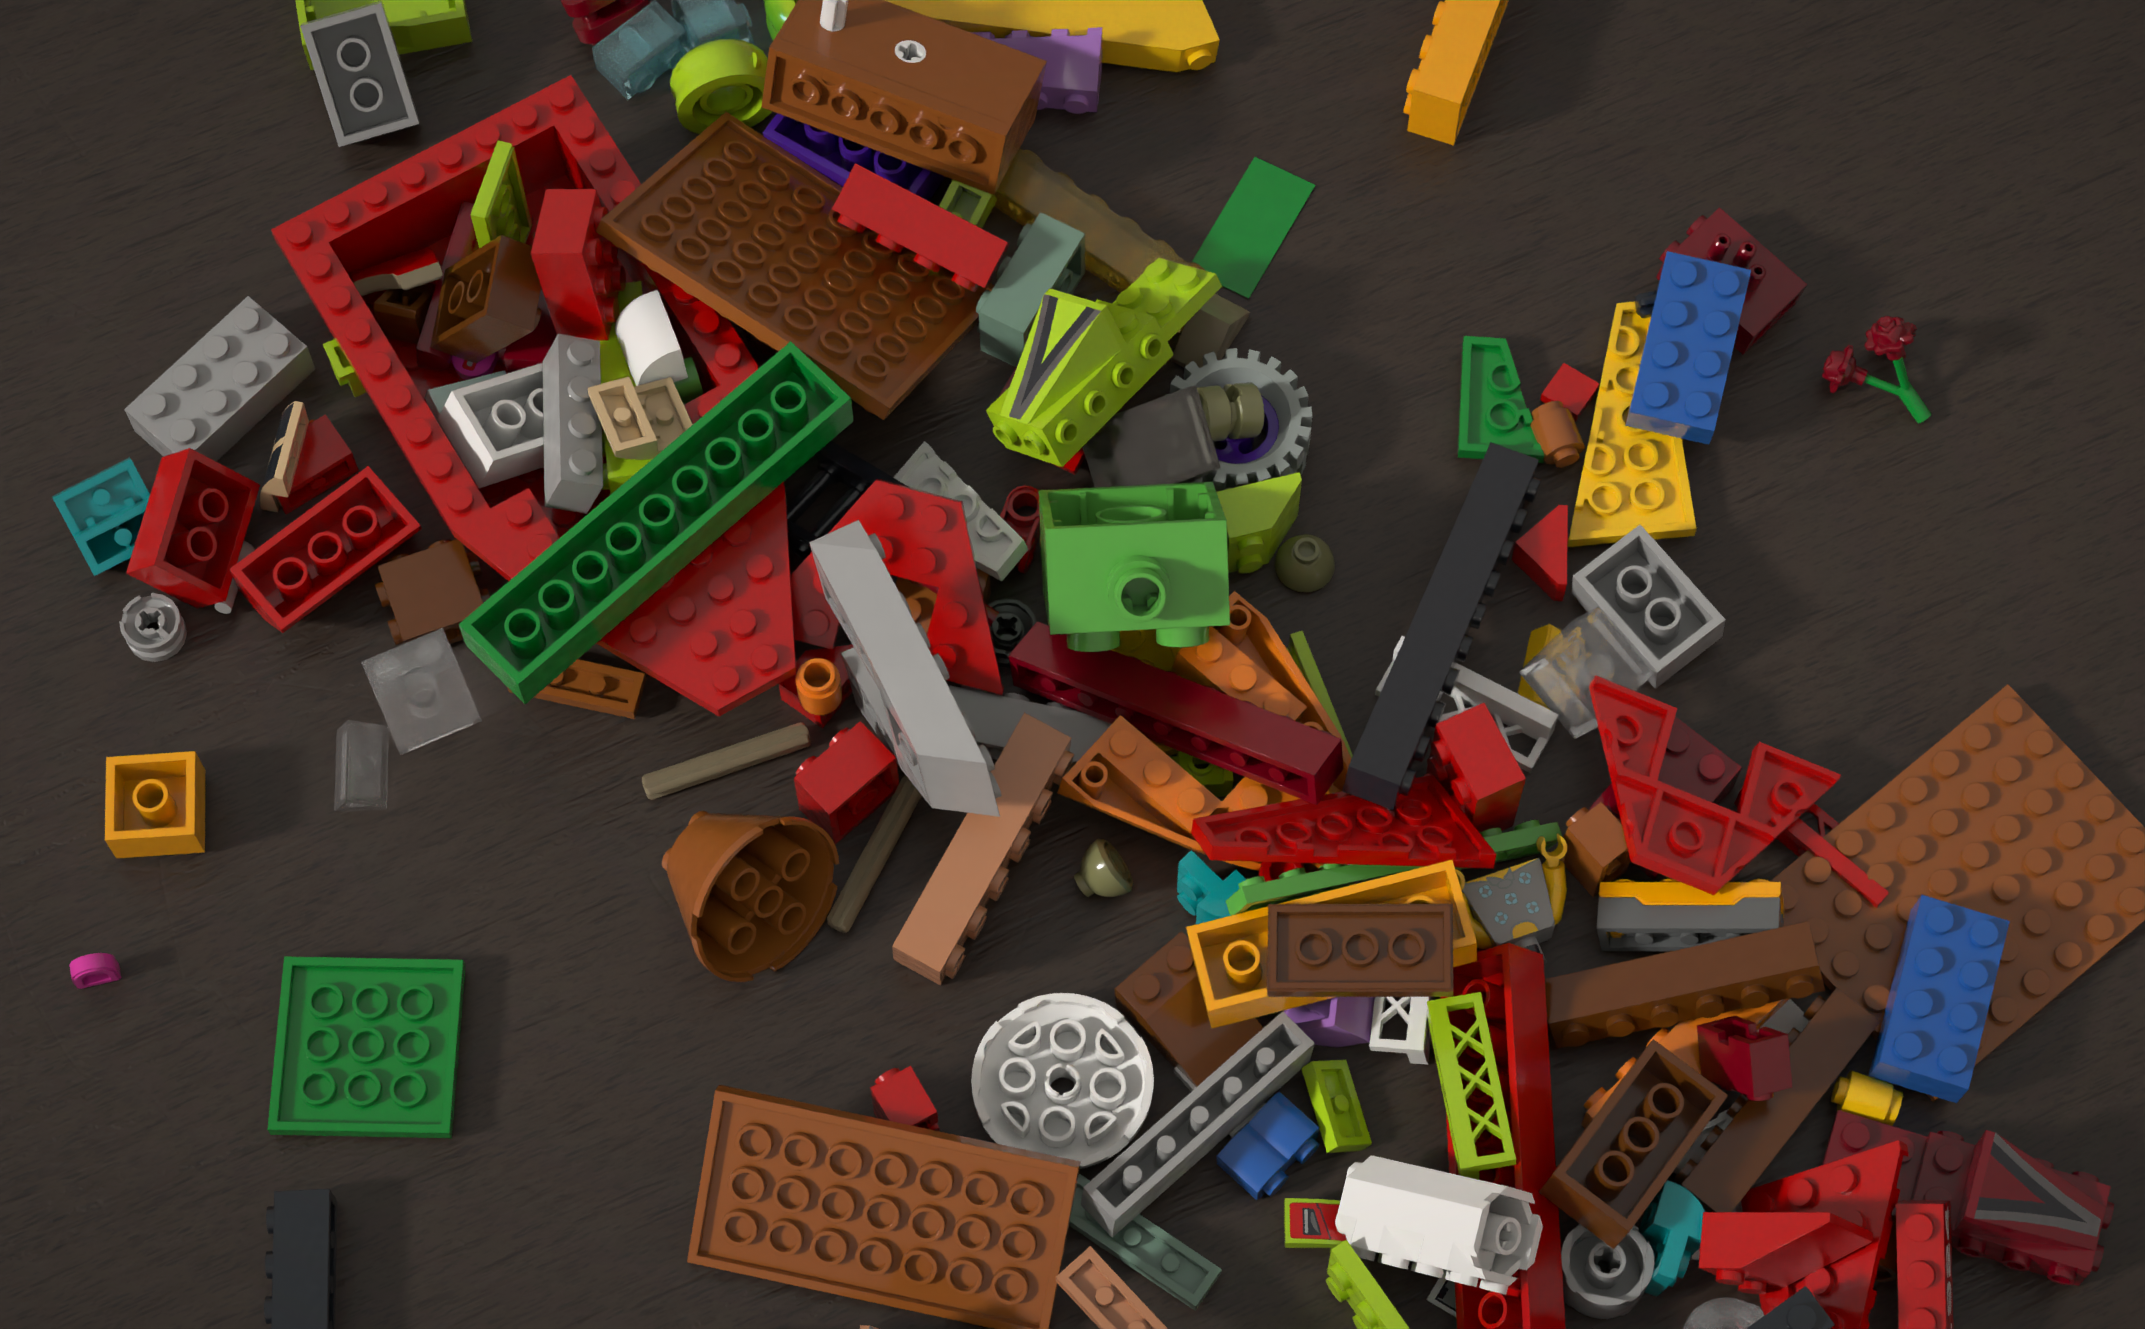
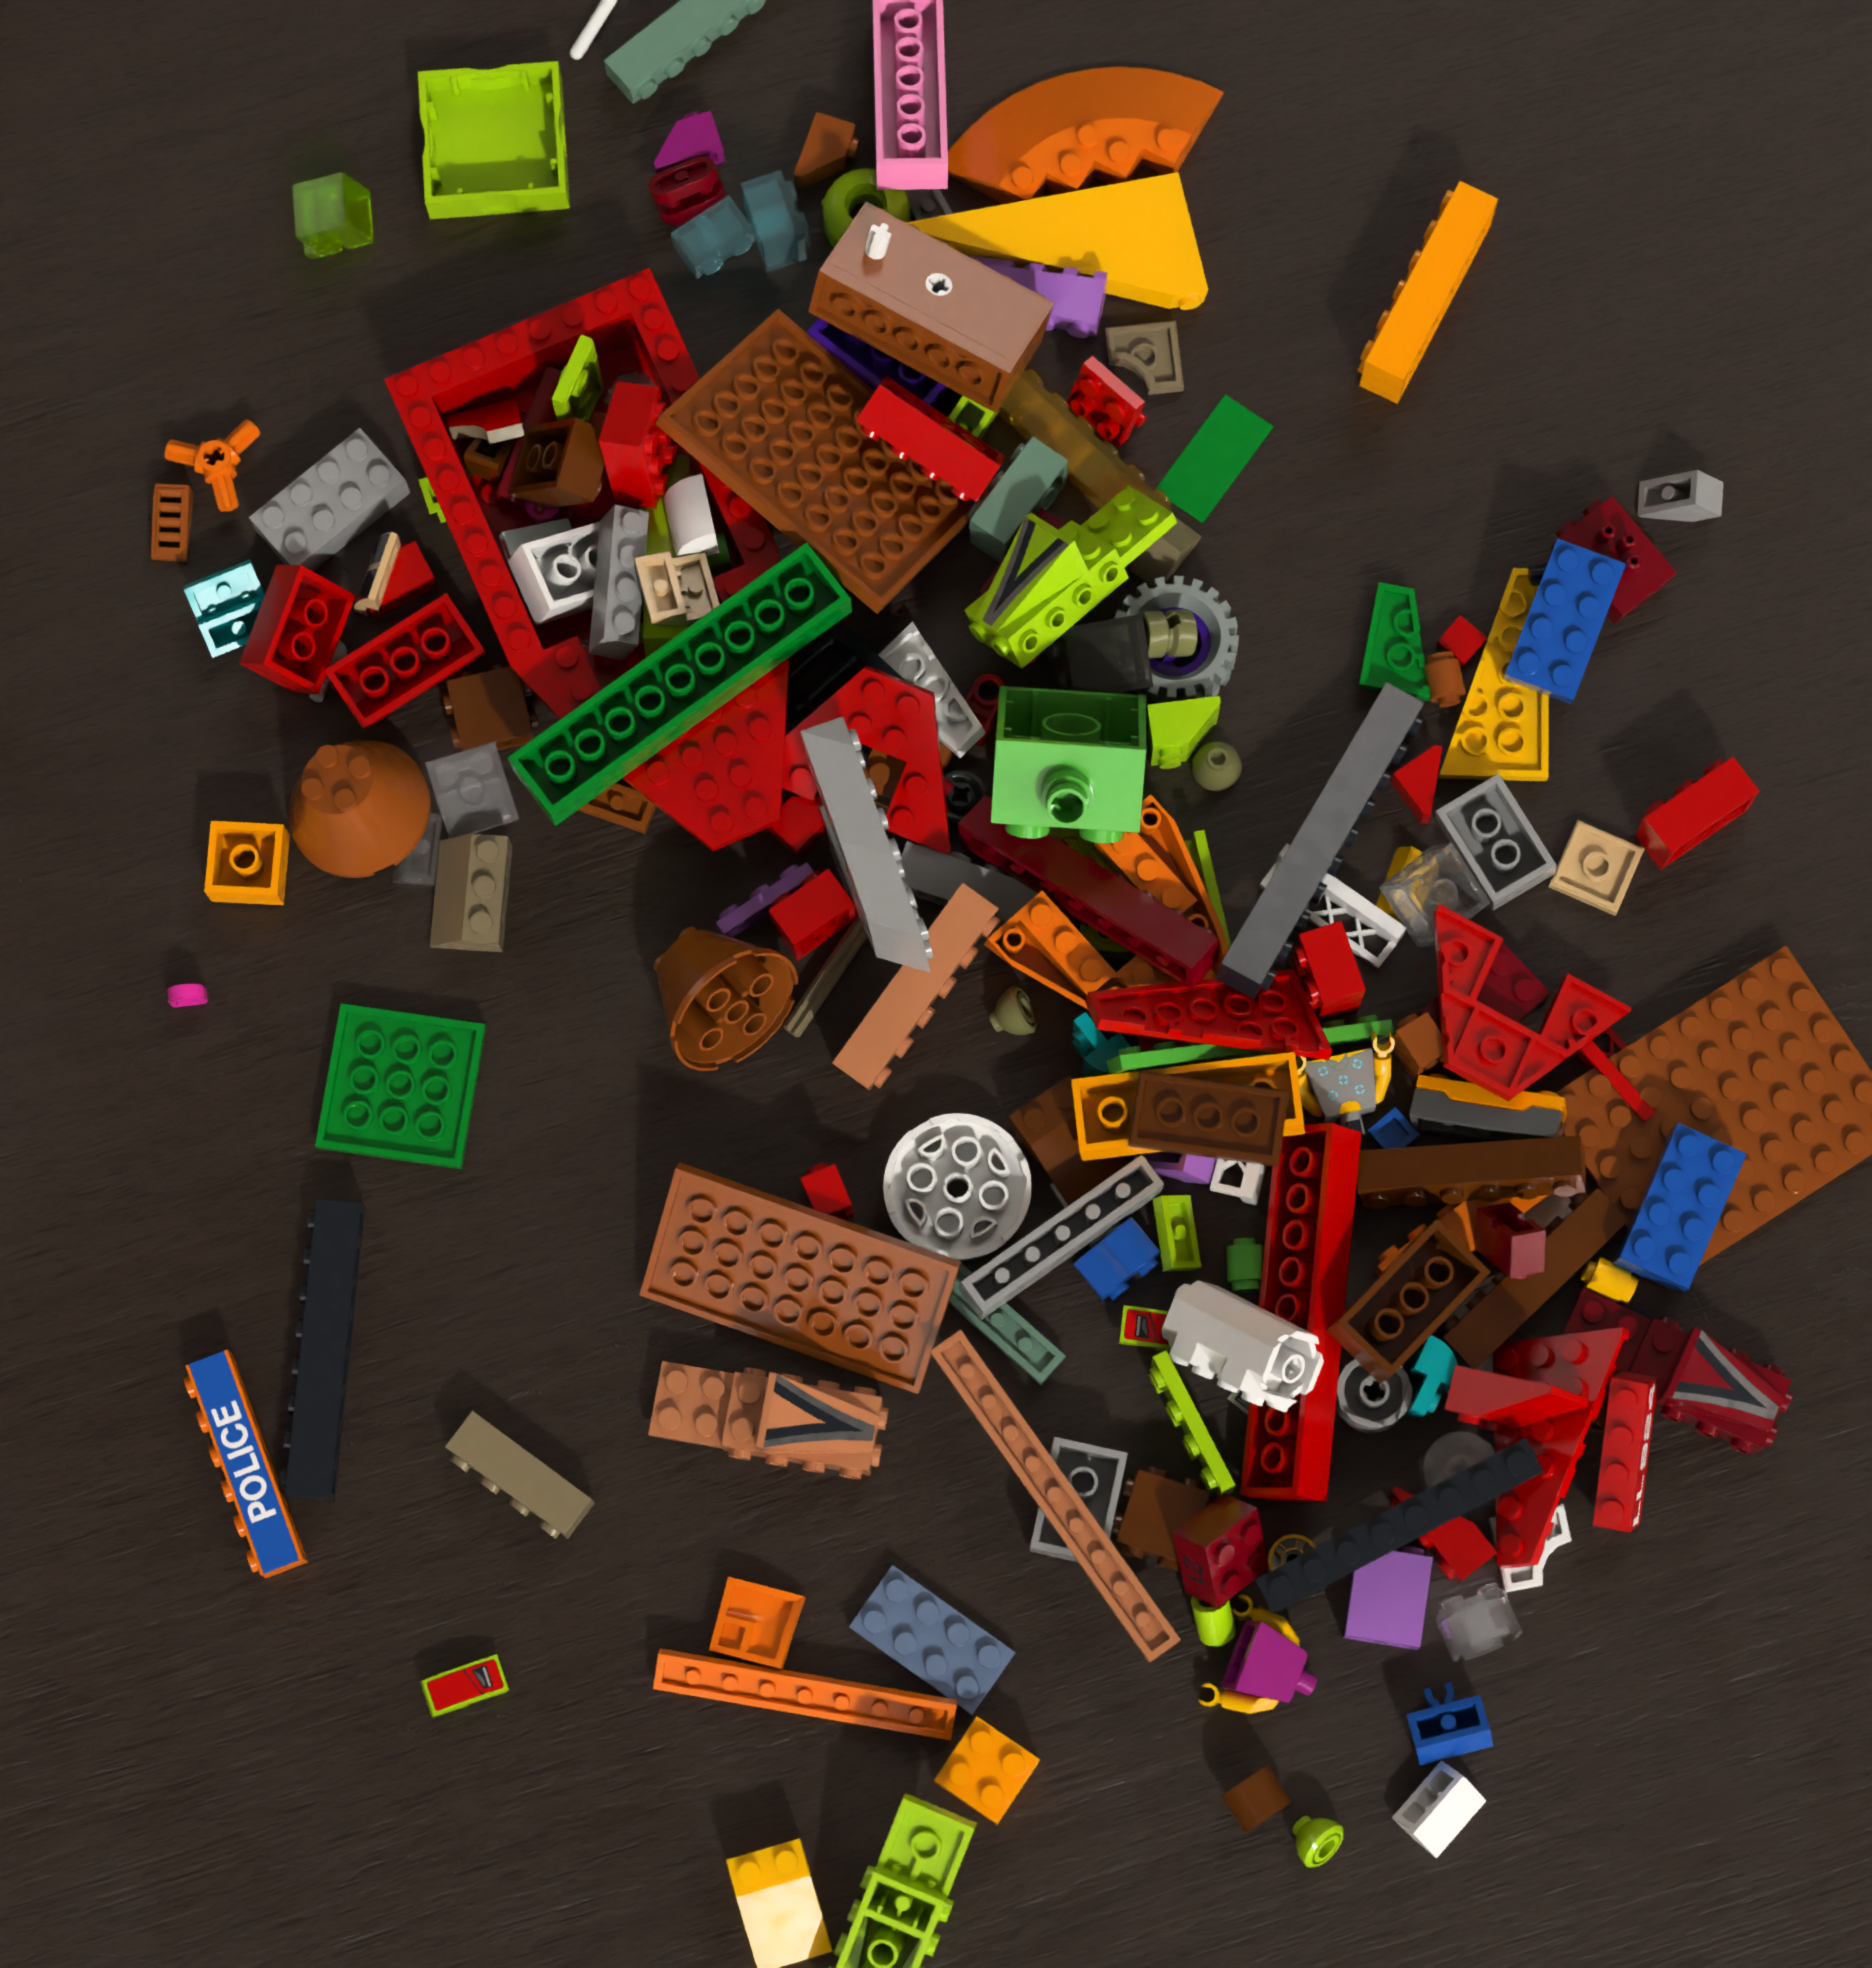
camera: 10 degrees right, 10 degrees up
(26, 404) = (171, 492): none -> dark orange slope
(81, 355) = (223, 472): none -> orange bush
(146, 642) = (253, 721): light grey wheel -> none
(195, 71) = (332, 214): none -> clear neon green plate
(284, 724) = (359, 808): none -> dark orange cone
(360, 73) = (471, 236): light grey brick -> none
(432, 810) = (471, 893): none -> dark tan slope
(718, 80) = (776, 280): lime piece -> none
(726, 760) = (715, 879): dark tan axle -> none
(780, 783) = (737, 919): none -> medium lavender plate
(819, 686) = (798, 833): orange brick -> none
(1120, 172) = (1106, 402): none -> red plate
(1161, 120) = (1150, 352): none -> dark tan tile
(1425, 1134) = (1244, 1265): none -> bright green brick
(1452, 1087) = (1271, 1244): lime fence -> none
(1578, 953) = (1393, 1131): none -> blue plate
(1769, 626) = (1596, 867): none -> tan tile
(1796, 205) = (1681, 497): none -> light grey slope
(1876, 544) = (1695, 811): none -> red brick
(1884, 337) = (1734, 634): dark red plant -> none

